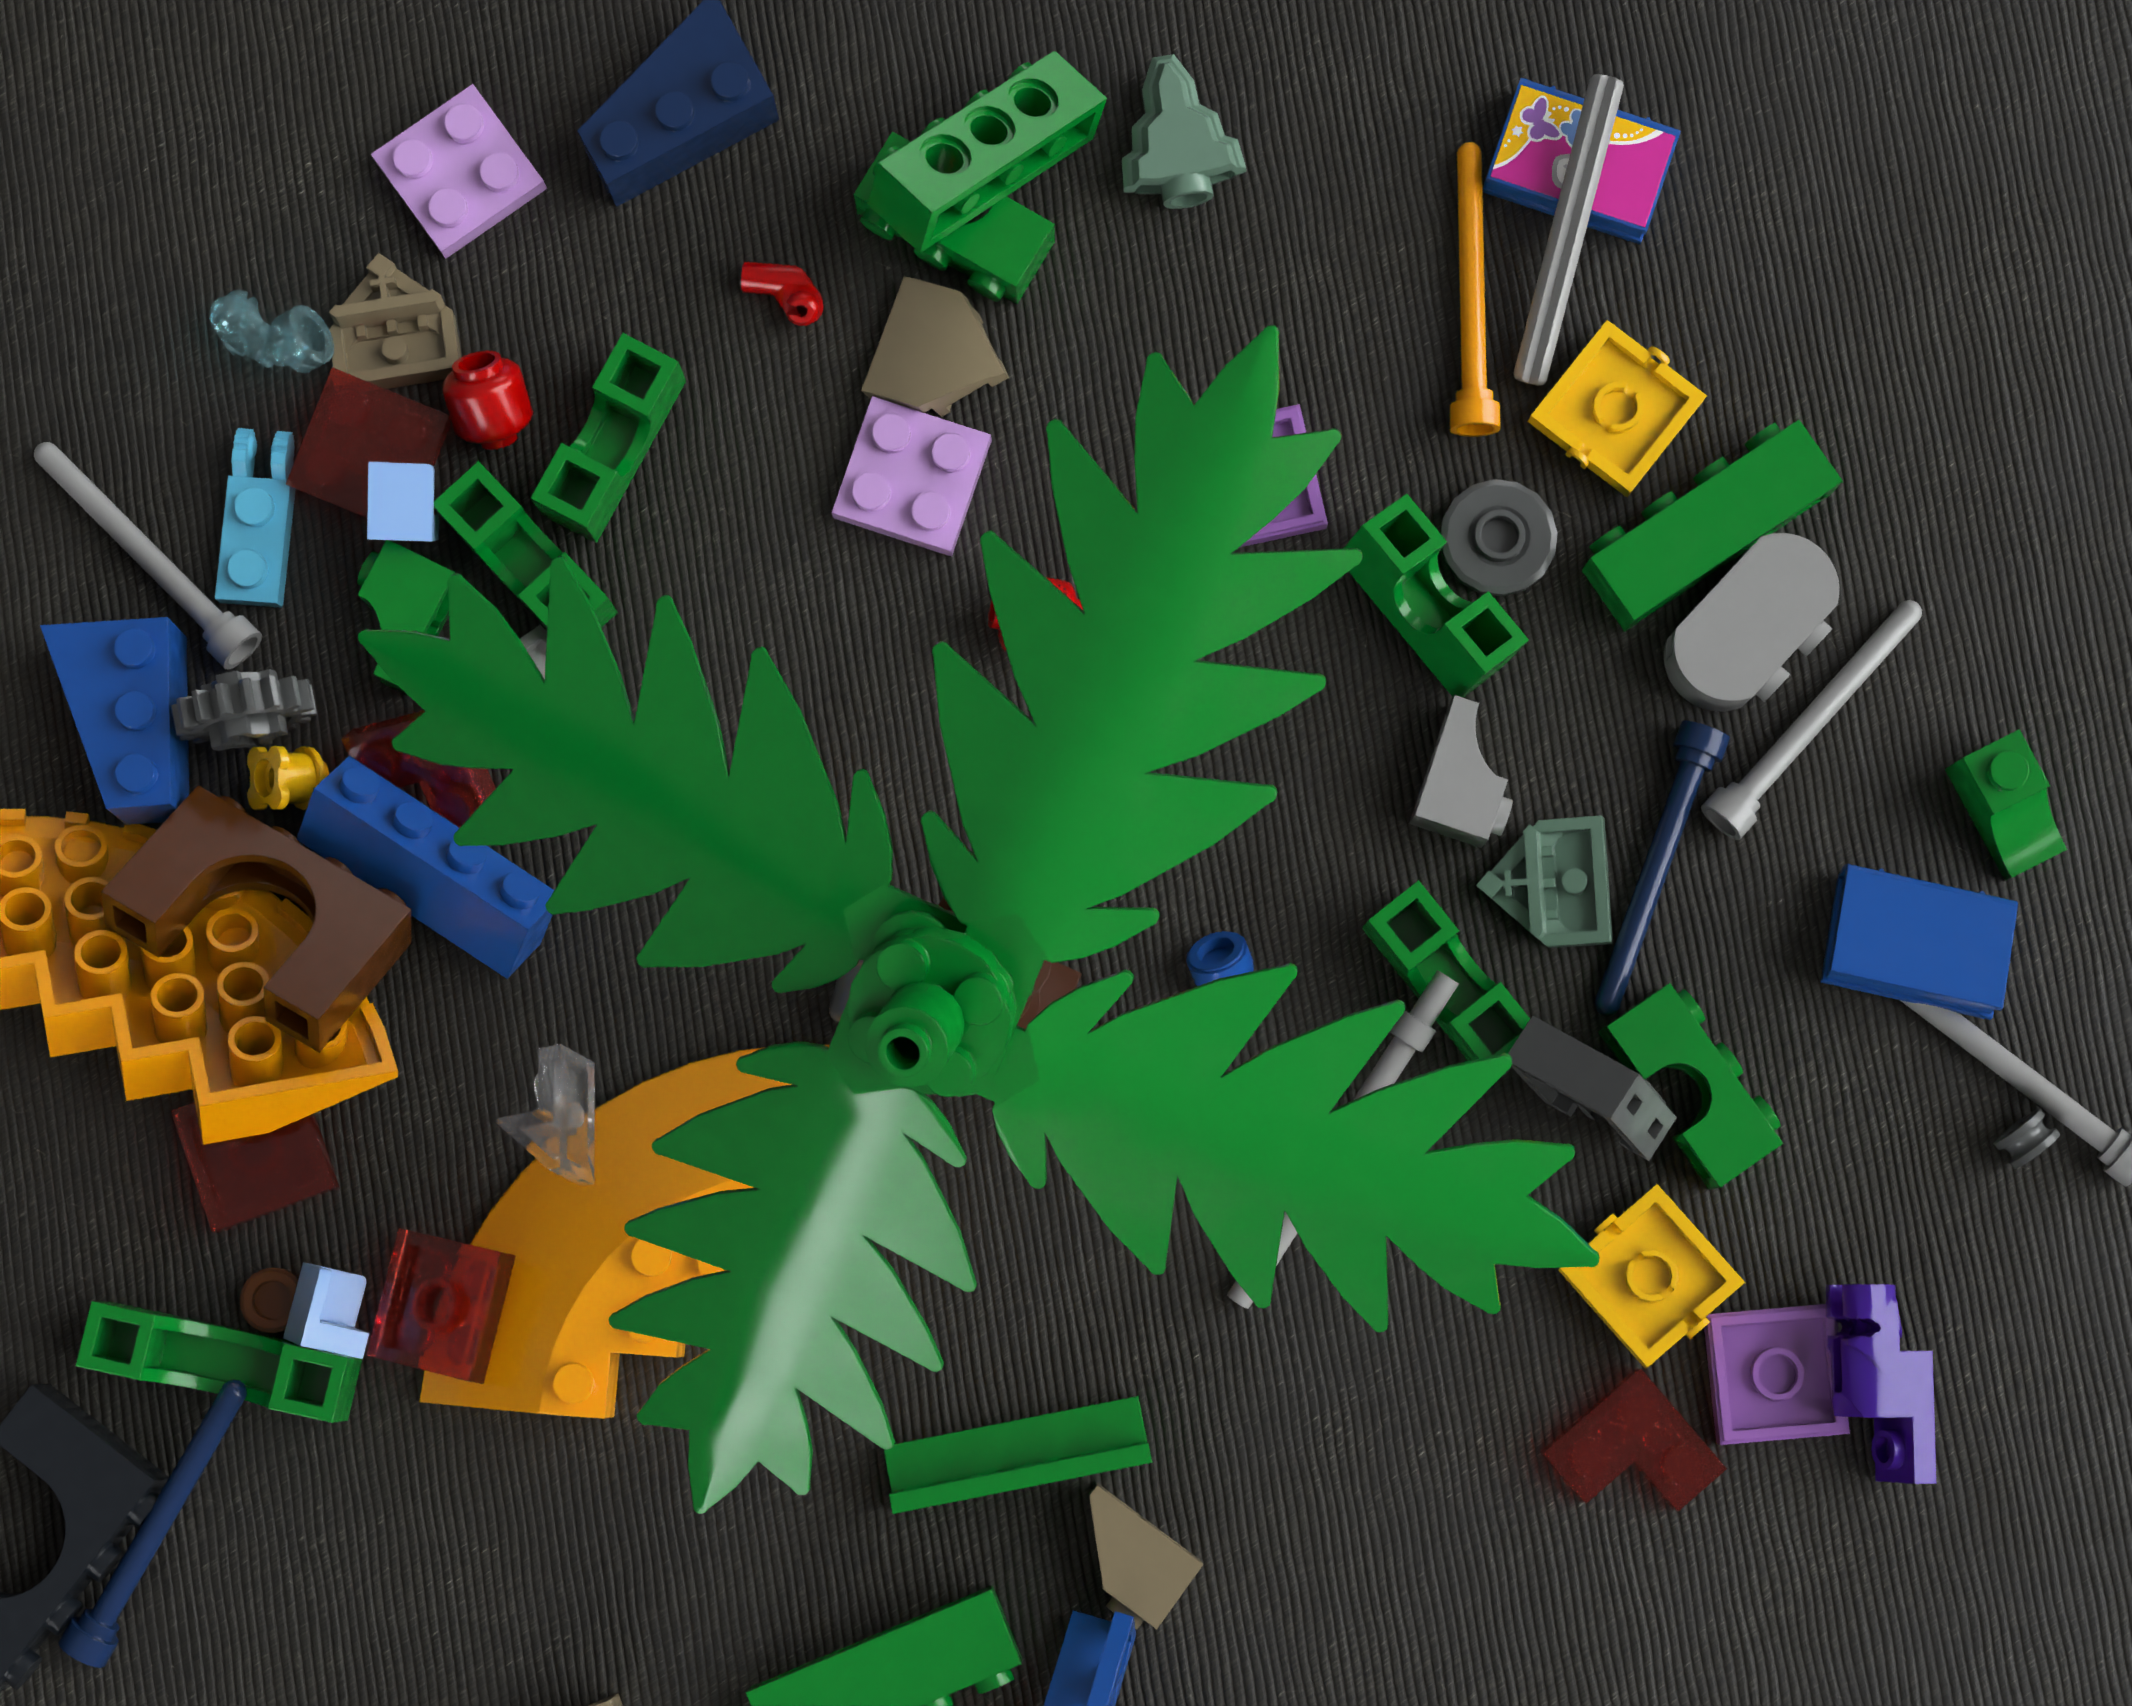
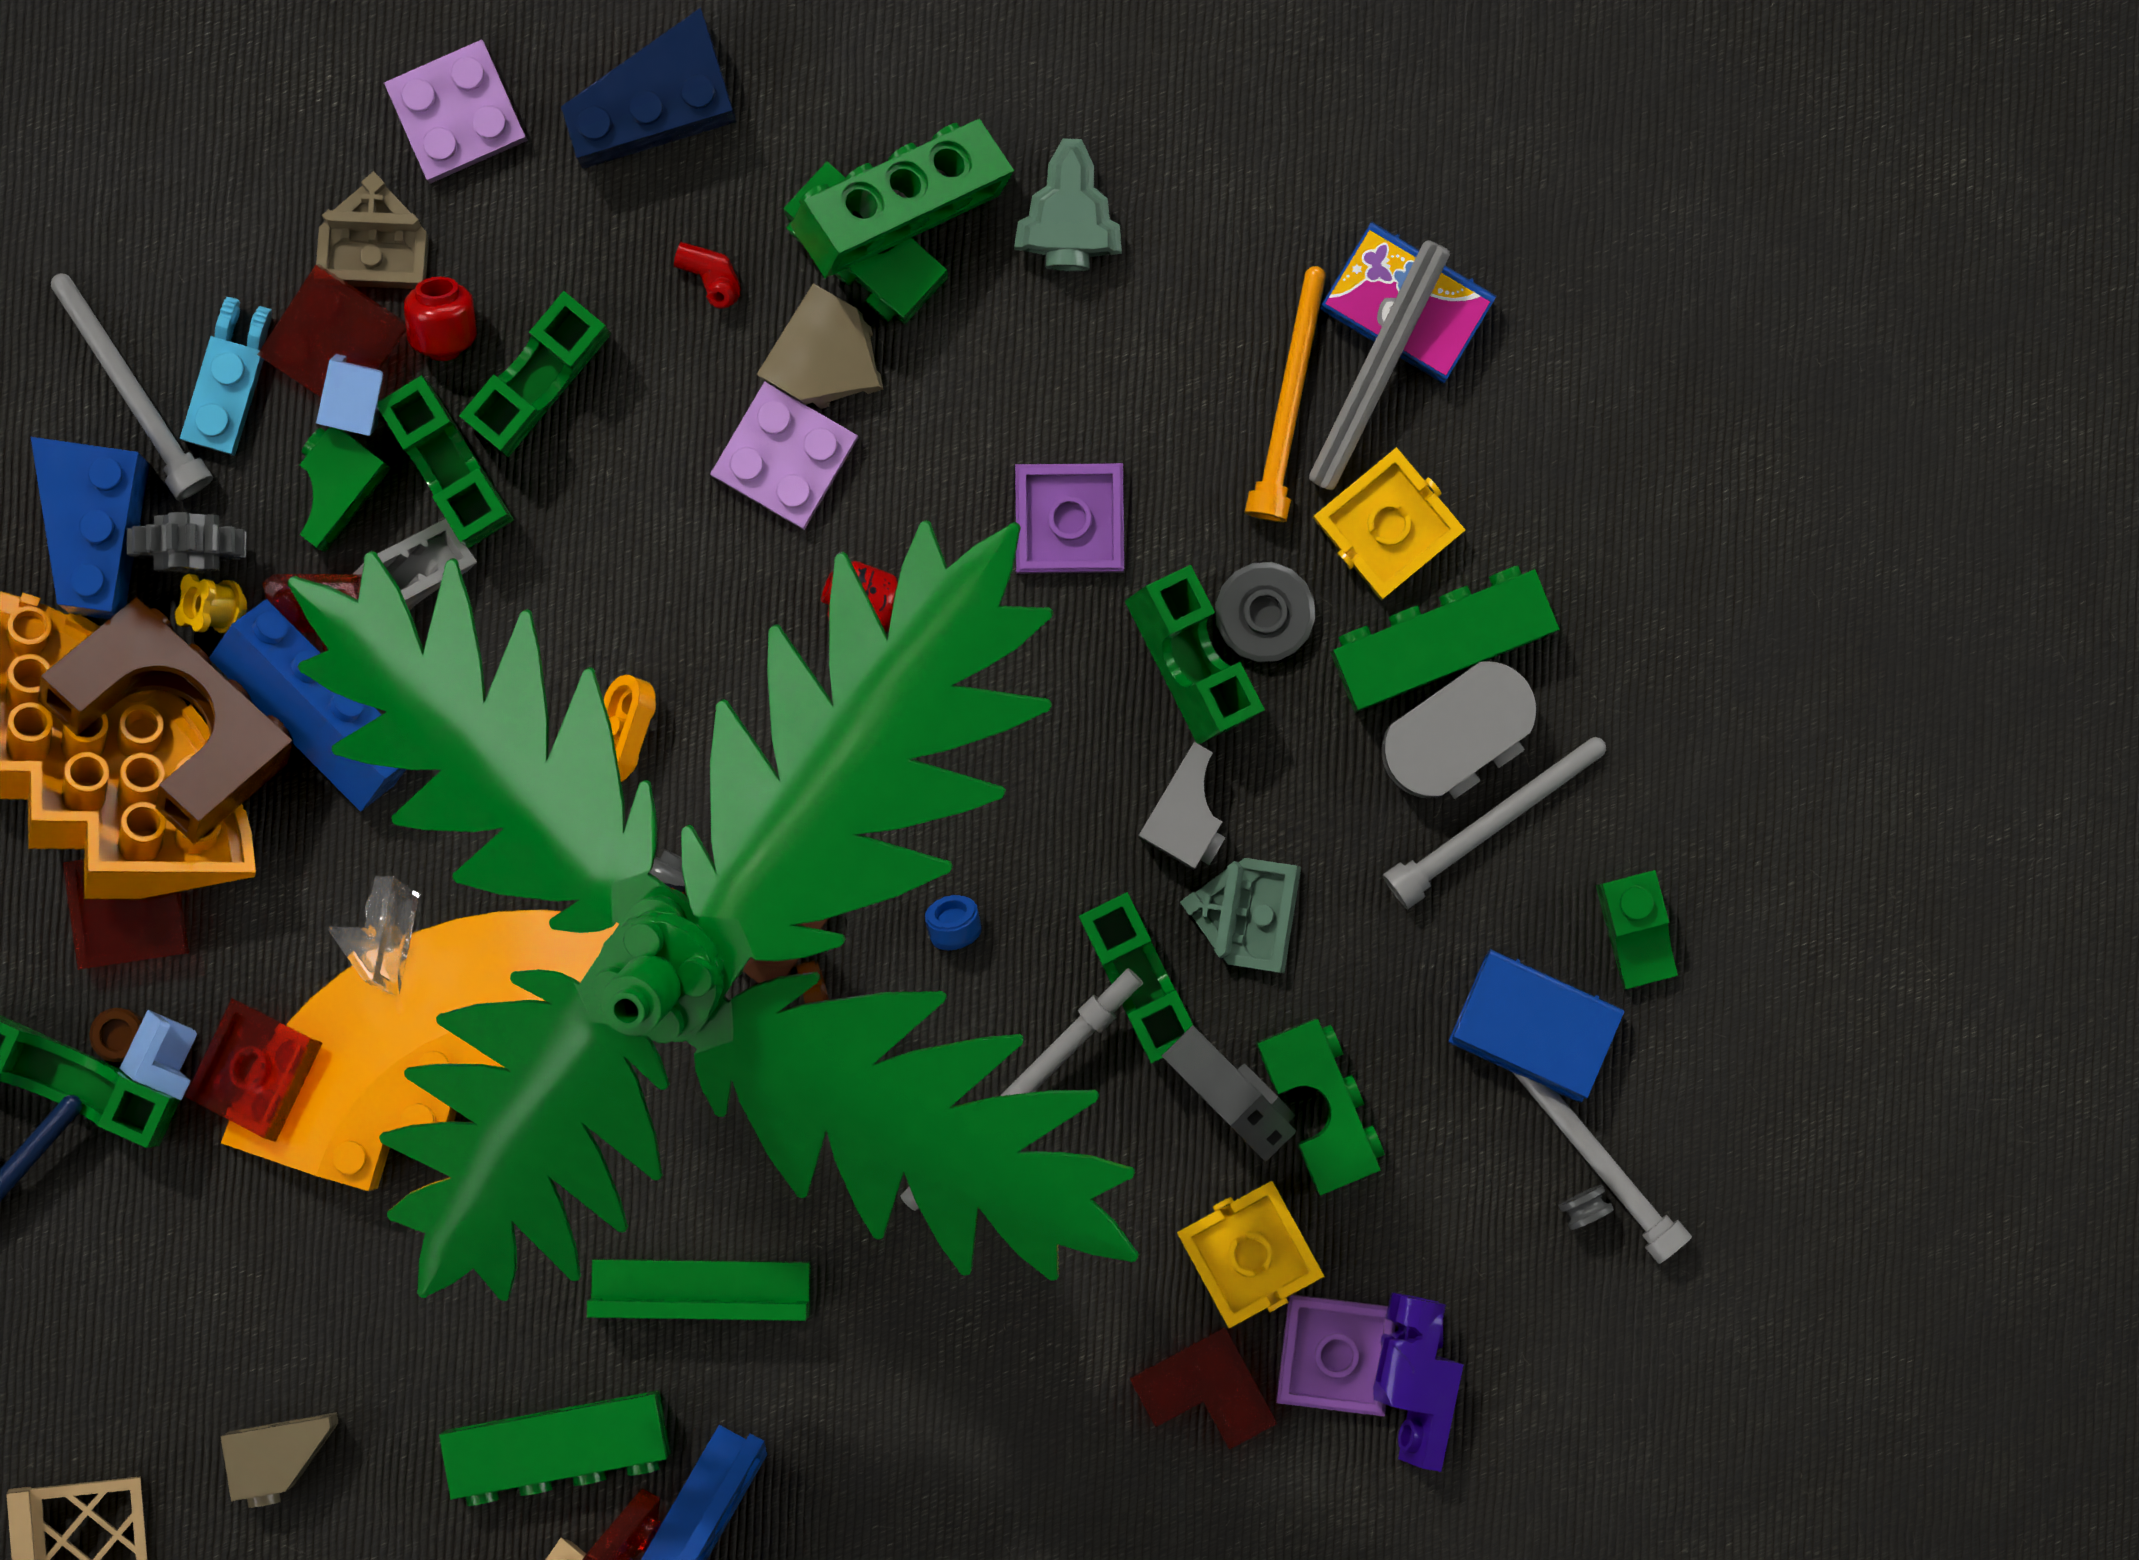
camera: 10 degrees right, 5 degrees up
(294, 339) = (289, 232): clear light blue arm -> none
(1138, 1561) = (779, 1395): dark tan slope -> none
(1697, 752) = (1389, 829): dark blue piece -> none

